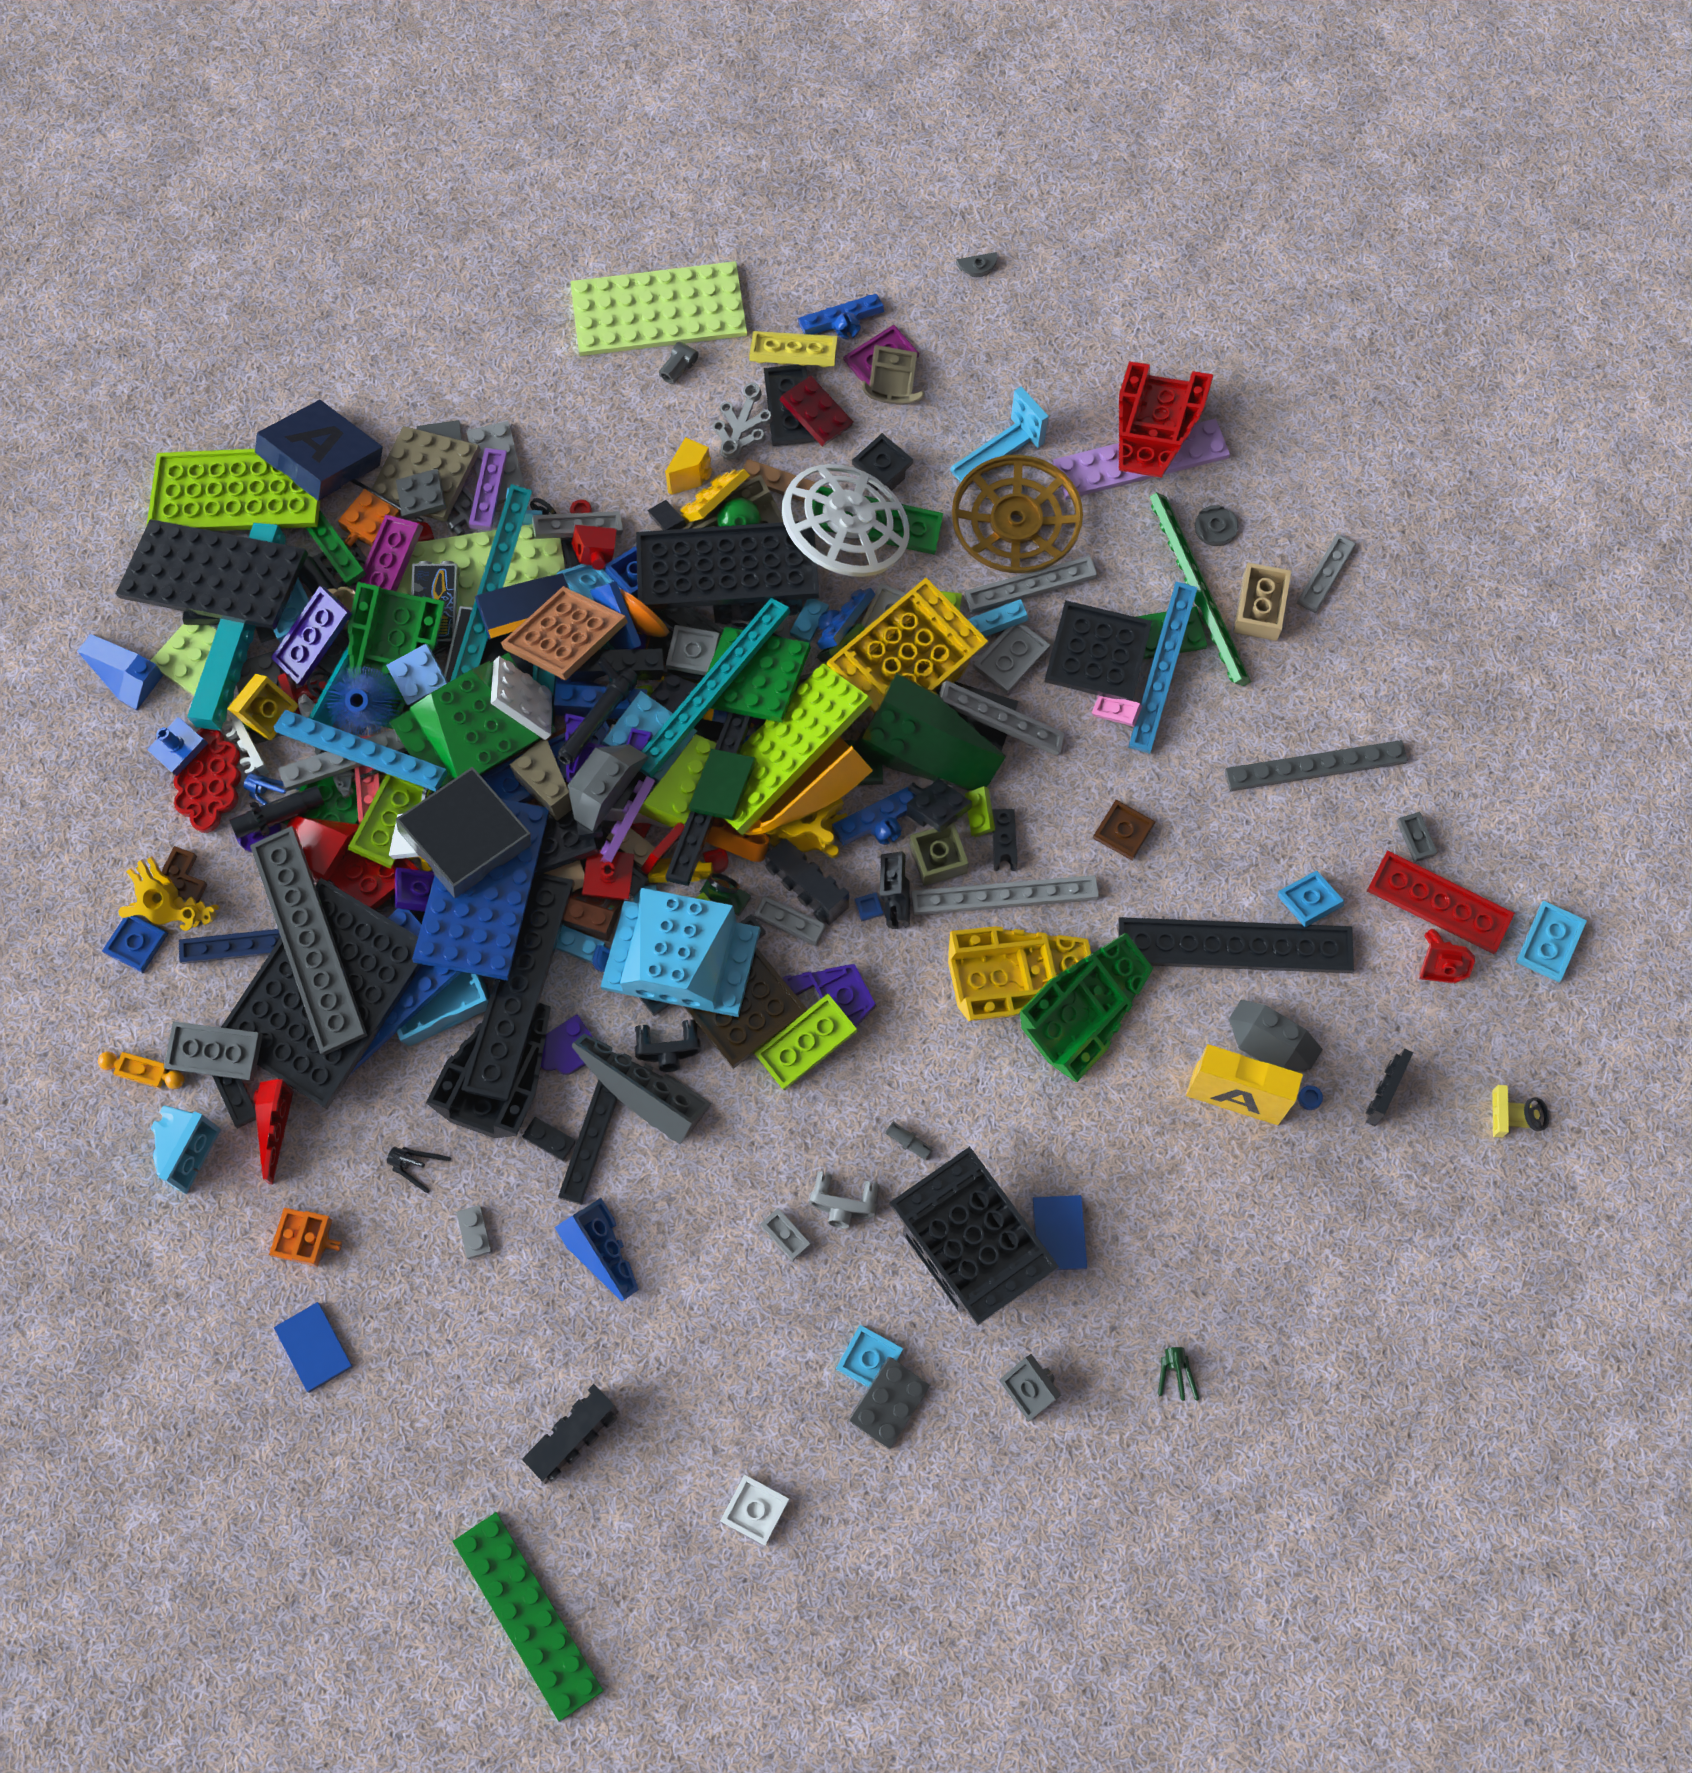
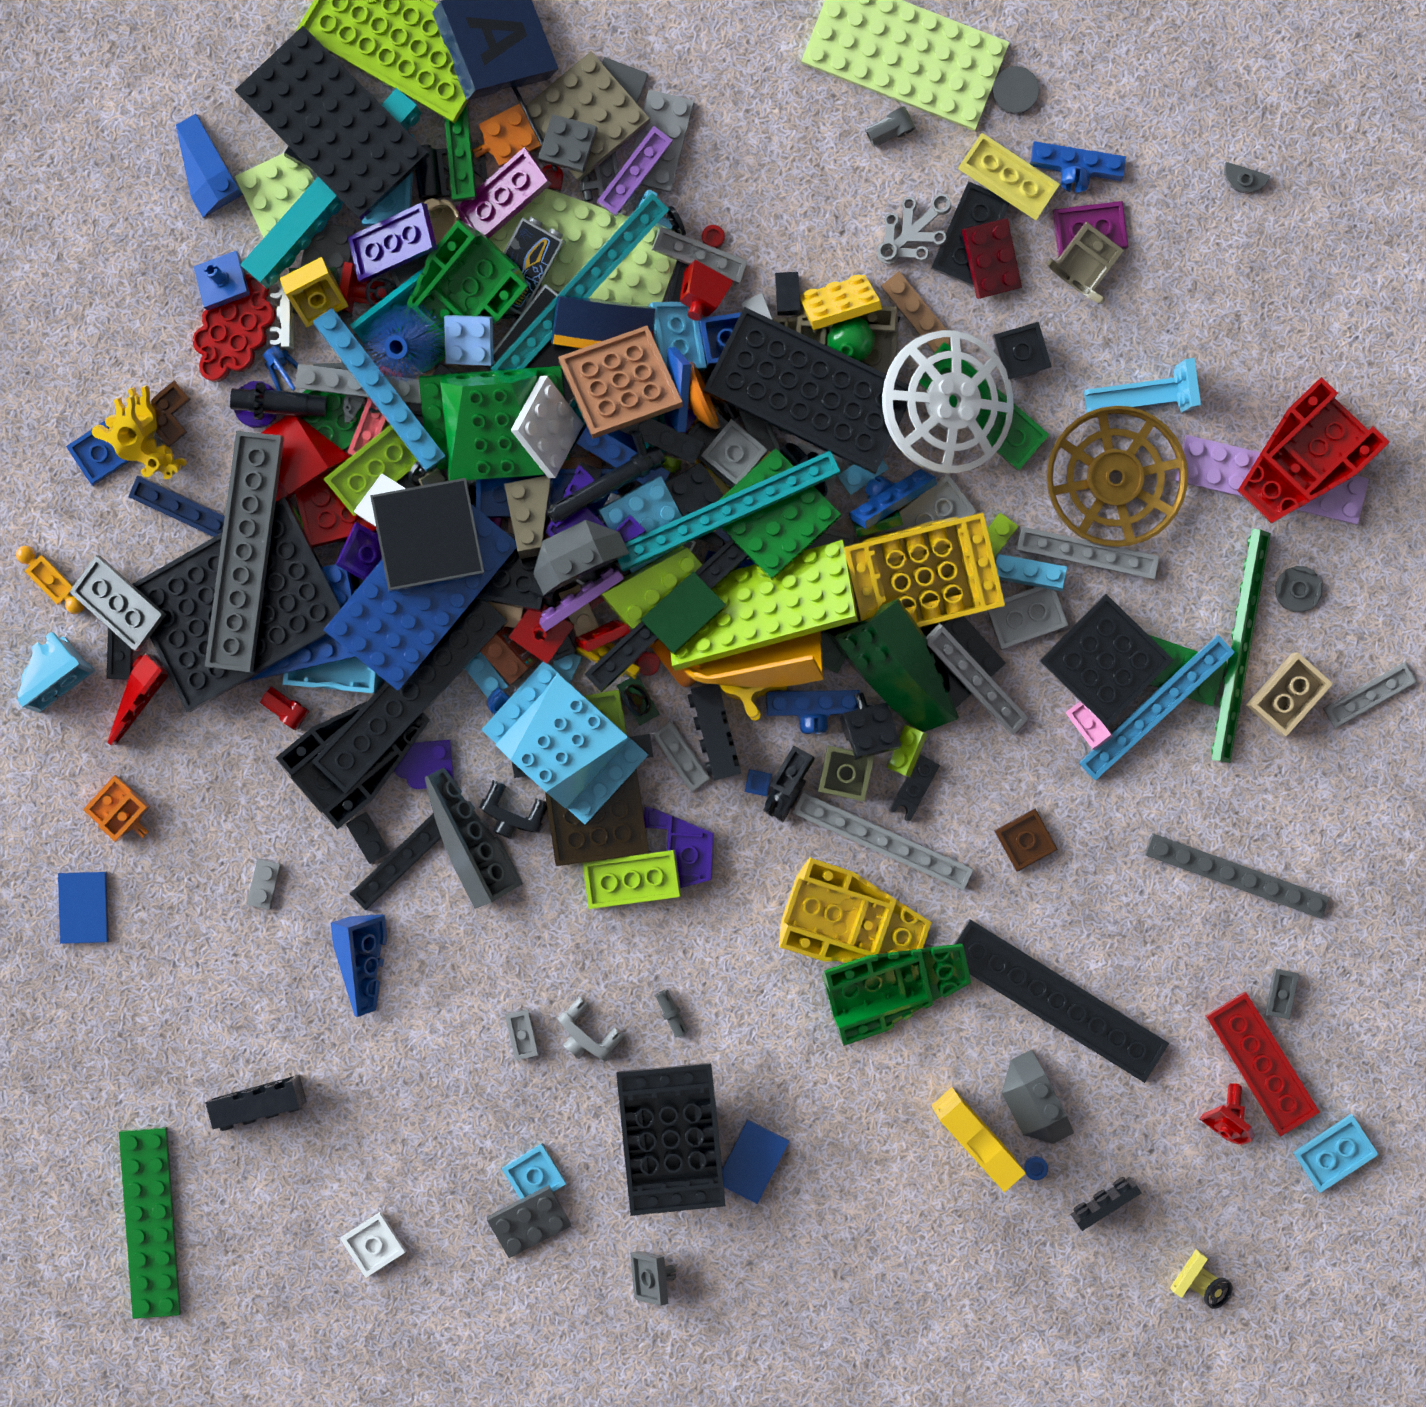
camera: 30 degrees right, 20 degrees up
(305, 705) = (356, 307): white tile -> none
(402, 1158) = (233, 787): black plant -> none
(417, 1066) = (288, 710): none -> red piece
(688, 467) = (836, 254): yellow slope -> none
(761, 291) = (1015, 90): none -> dark grey tile
(1177, 1361) = (784, 1320): dark green plant -> none
(1310, 898) = (1149, 998): dark azure plate -> none

